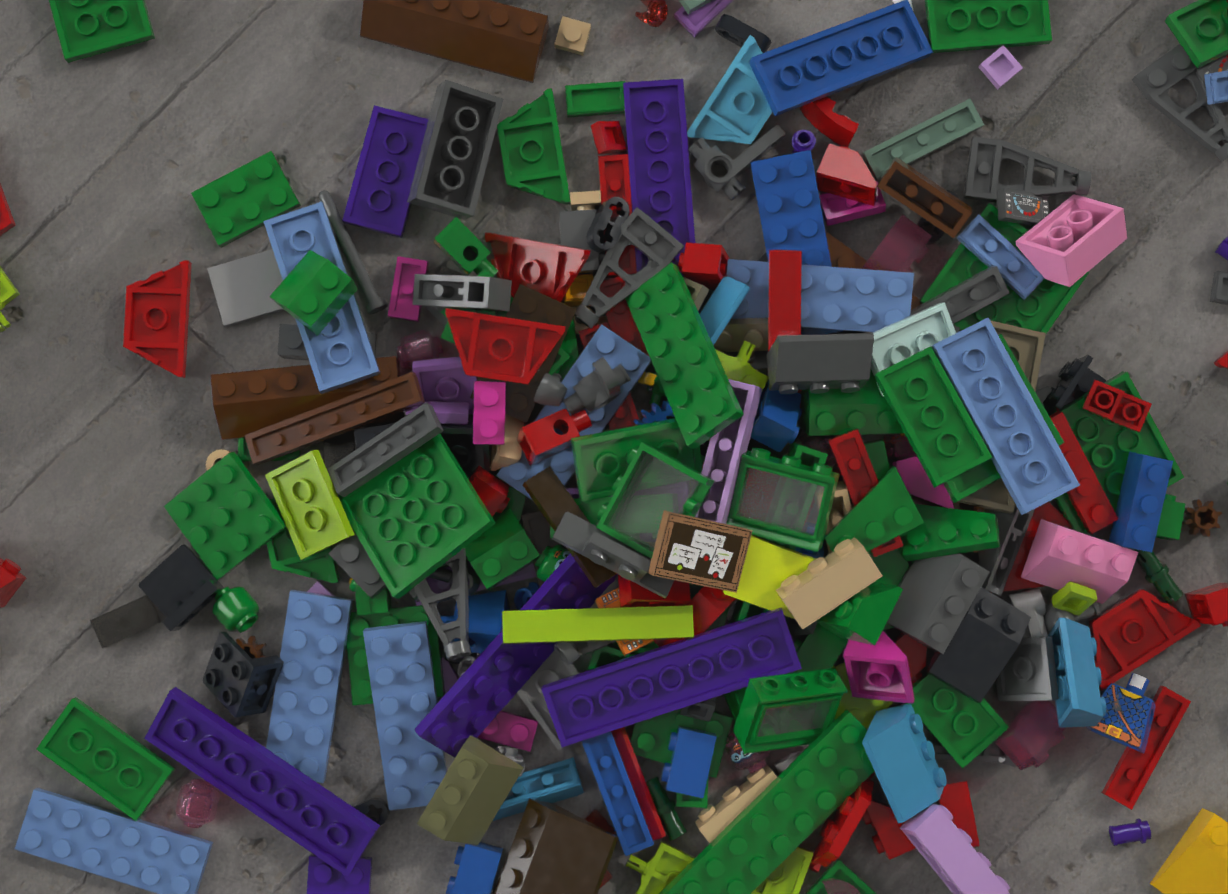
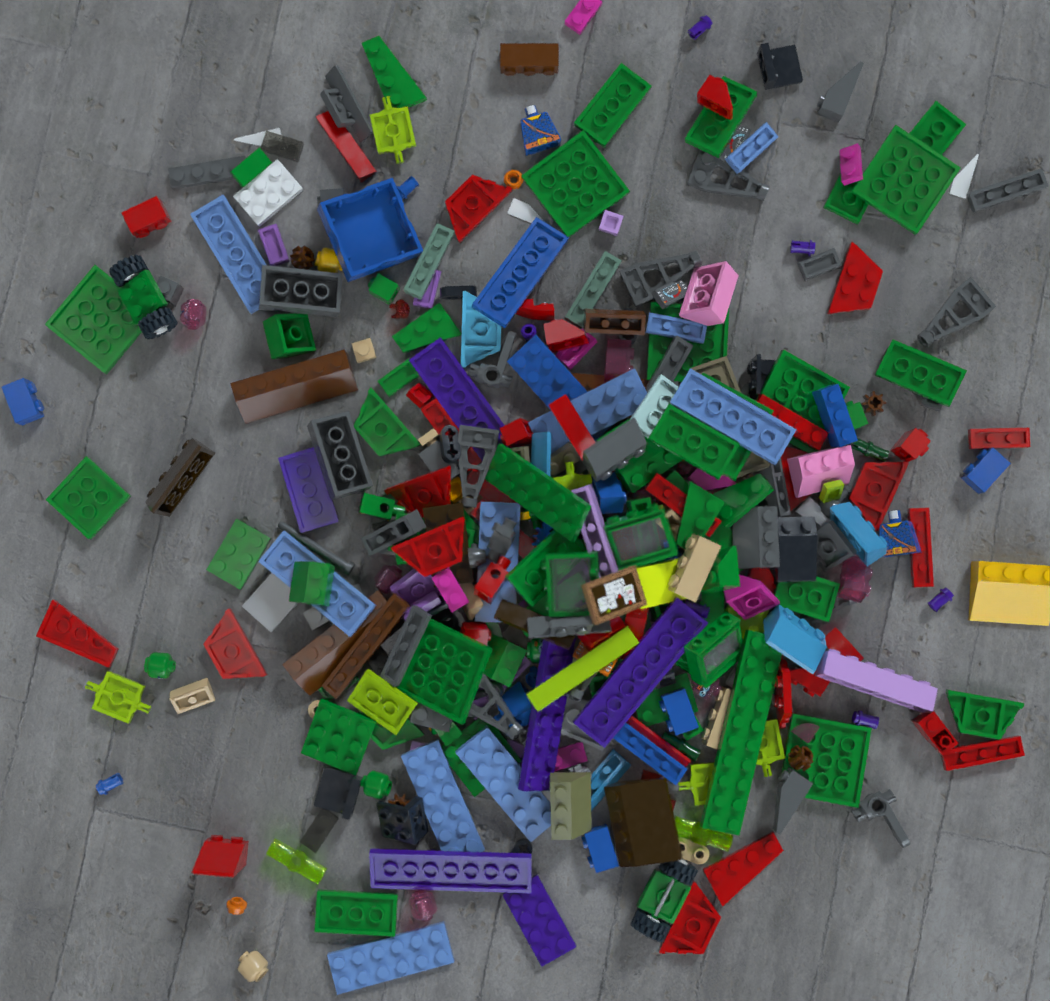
camera: 30 degrees left, 0 degrees up
(53, 278) = (159, 665): none -> green head
(61, 624) = (284, 853): none -> clear neon green piece
(71, 345) = (192, 696): none -> tan slope
(230, 52) = (179, 478): none -> dark brown slope
(401, 298) = (358, 549): dark pink plate -> none
(671, 58) = (426, 330): none -> green wing
(803, 646) = (701, 610): none -> dark purple pin
(1116, 406) = (789, 372): red slope -> none

